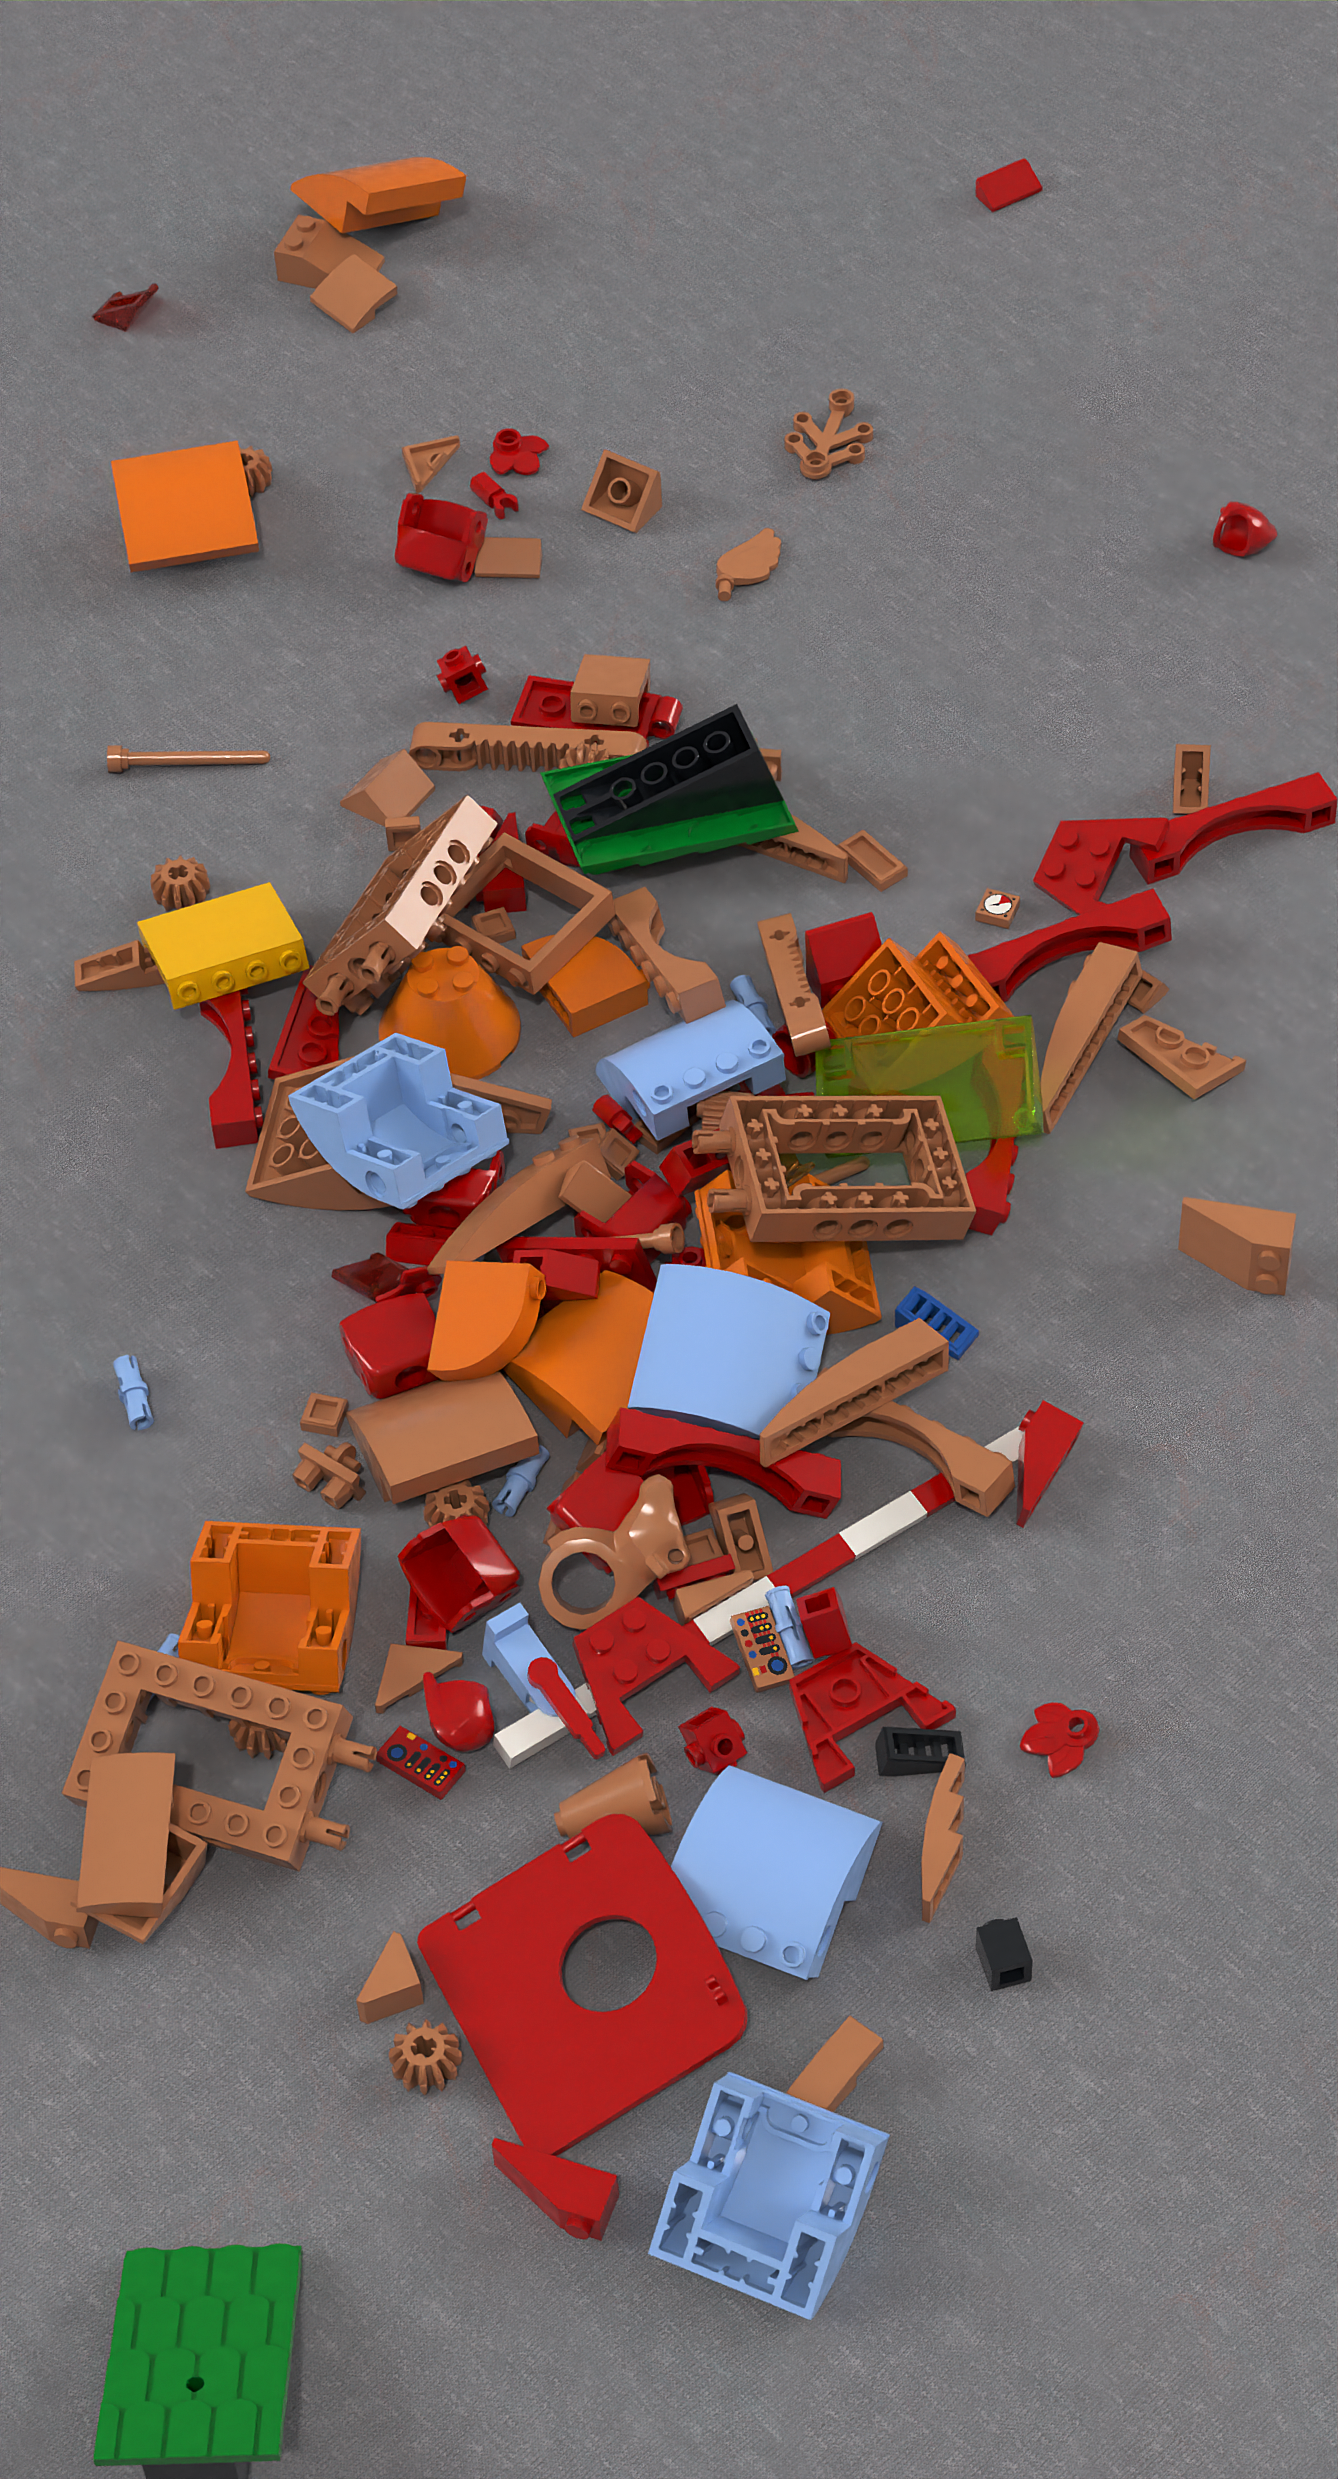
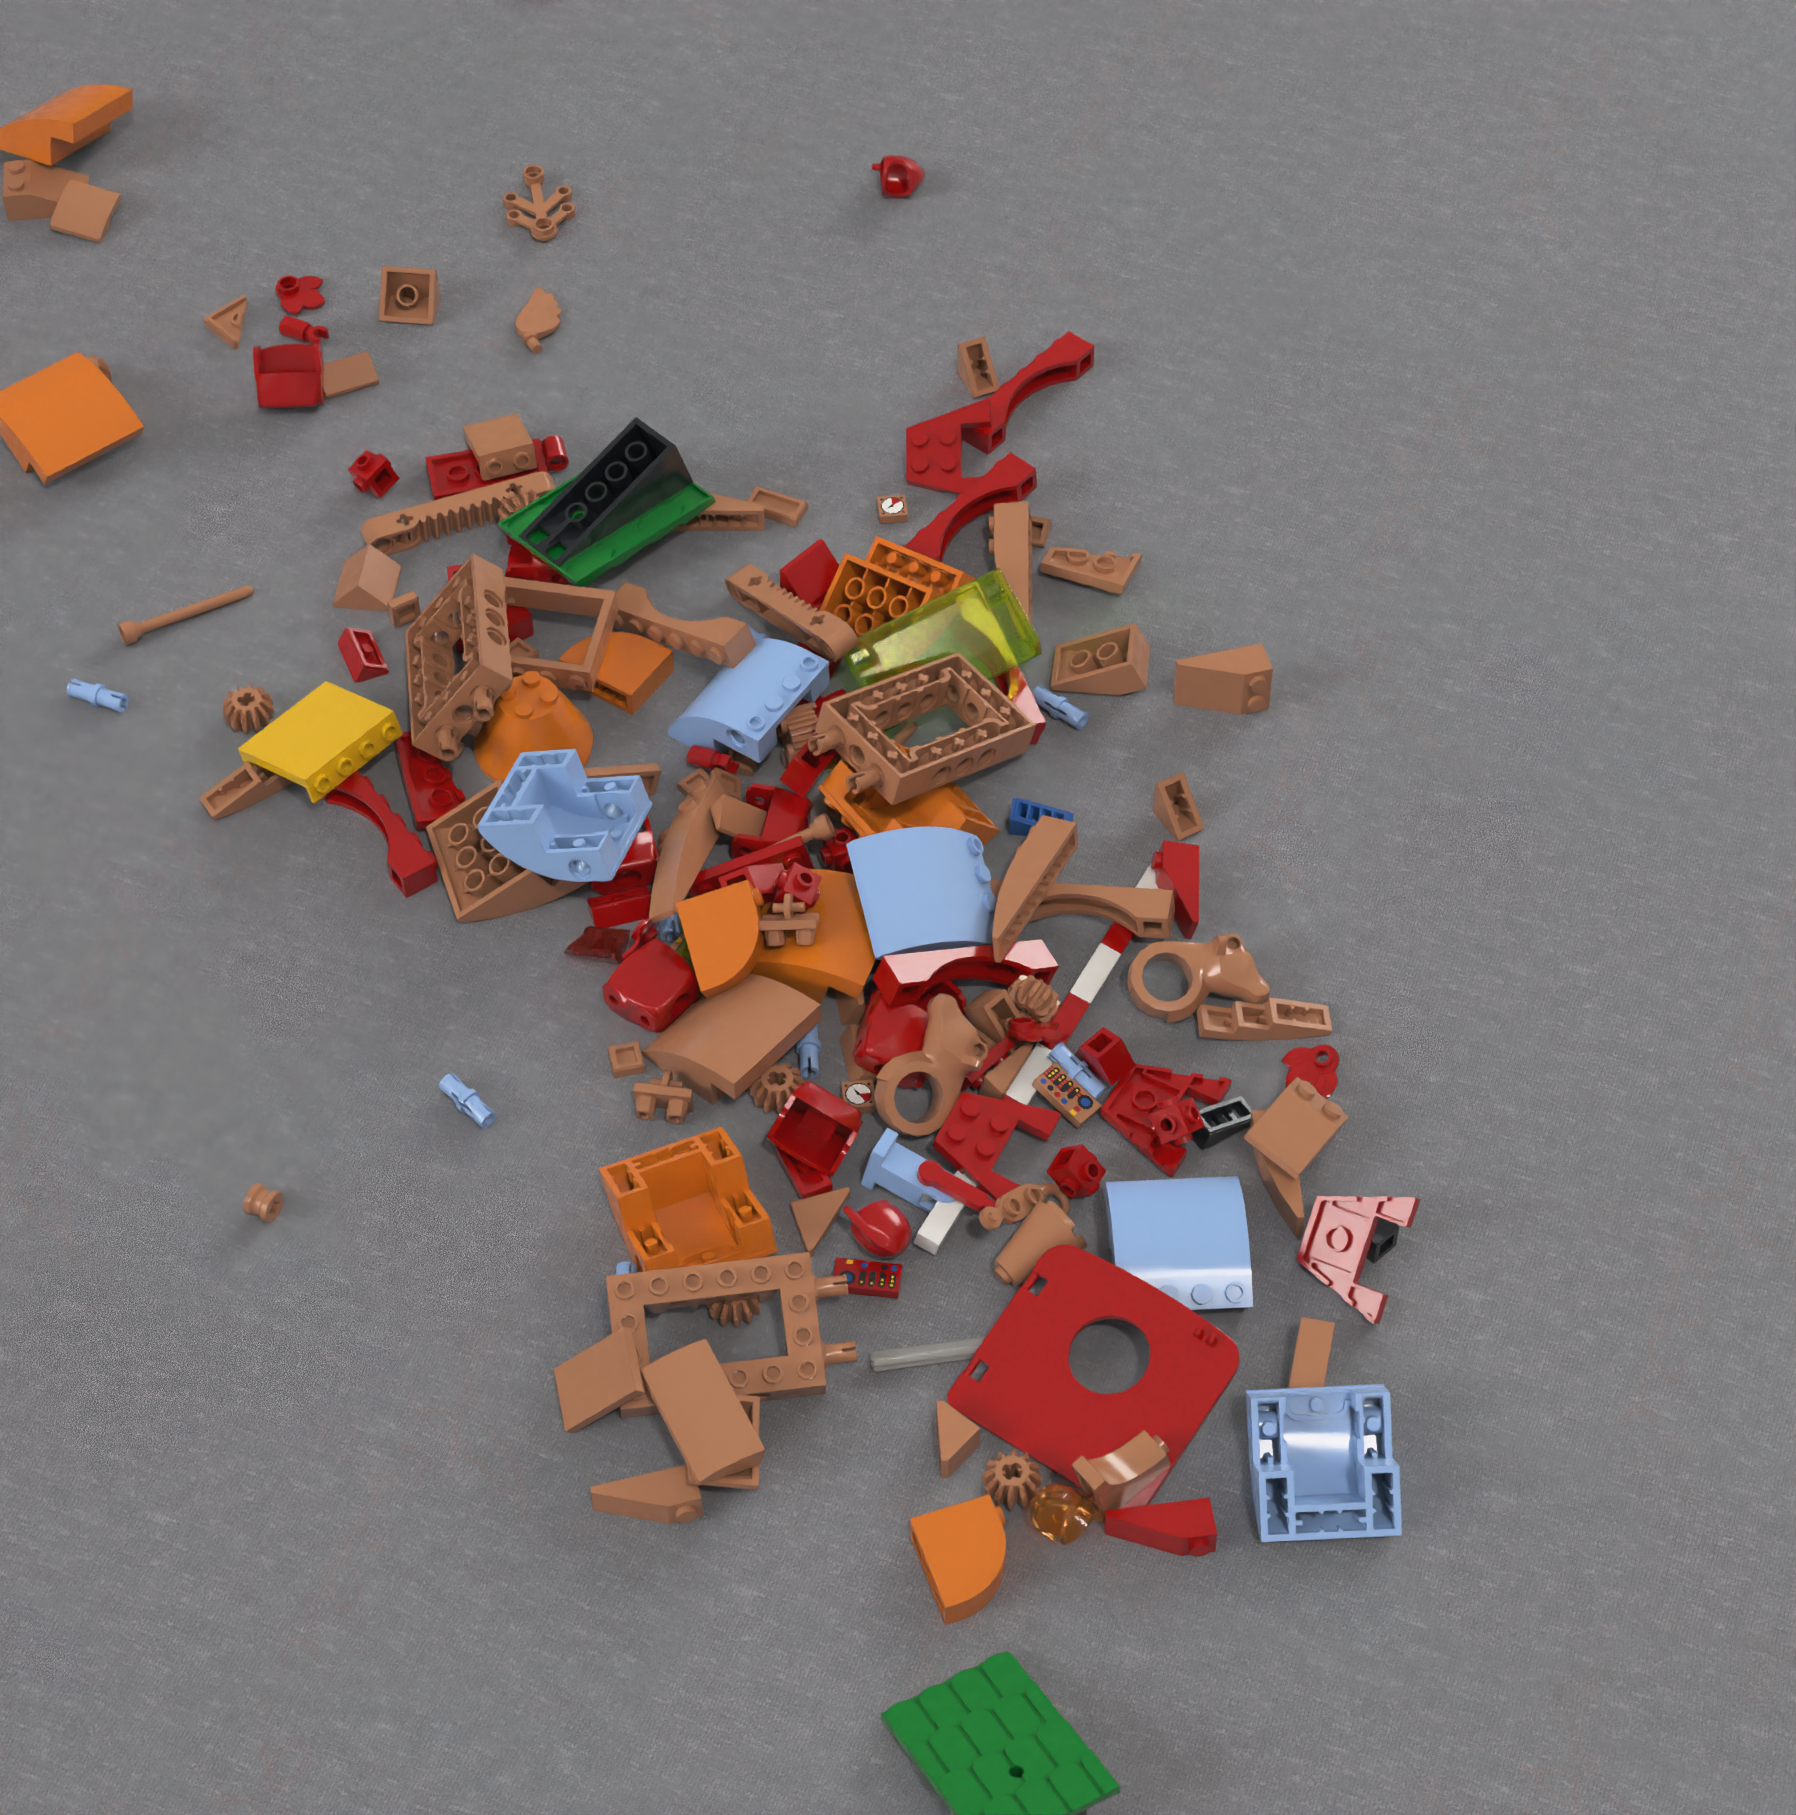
camera: 30 degrees left, 0 degrees up
(45, 814) = (97, 695): none -> light blue pin
(57, 1751) = (598, 1380): none -> nougat tile
(319, 2117) = (961, 1555): none -> orange brick
(335, 867) = (362, 654): none -> red slope
(423, 1873) = (925, 1354): none -> light grey axle
(451, 2119) = (1062, 1513): none -> clear orange piece
(529, 2105) = (1123, 1473): none -> nougat arch
(532, 1555) = (859, 1094): none -> tile
(558, 1323) = (776, 924): none -> nougat hips
(588, 1297) = (800, 883): none -> red brick
(617, 1747) = (1019, 1203): none -> nougat piece
(755, 1558) = (1027, 1030): none -> red plate
(787, 1525) = (1034, 998): none -> nougat gear
(855, 1728) = (1176, 1120): none -> red brick
(952, 1949) = (1340, 1239): none -> wing
(981, 1795) = (1296, 1127): none -> nougat slope
(1009, 1569) = (1211, 967): none -> nougat animal
(1039, 1203) = (1060, 707): none -> light blue pin
(1042, 1658) = (1257, 1022): none -> nougat slope
(1096, 1368) = (1176, 807): none -> nougat slope
(1120, 1171) = (1103, 663): none -> nougat slope

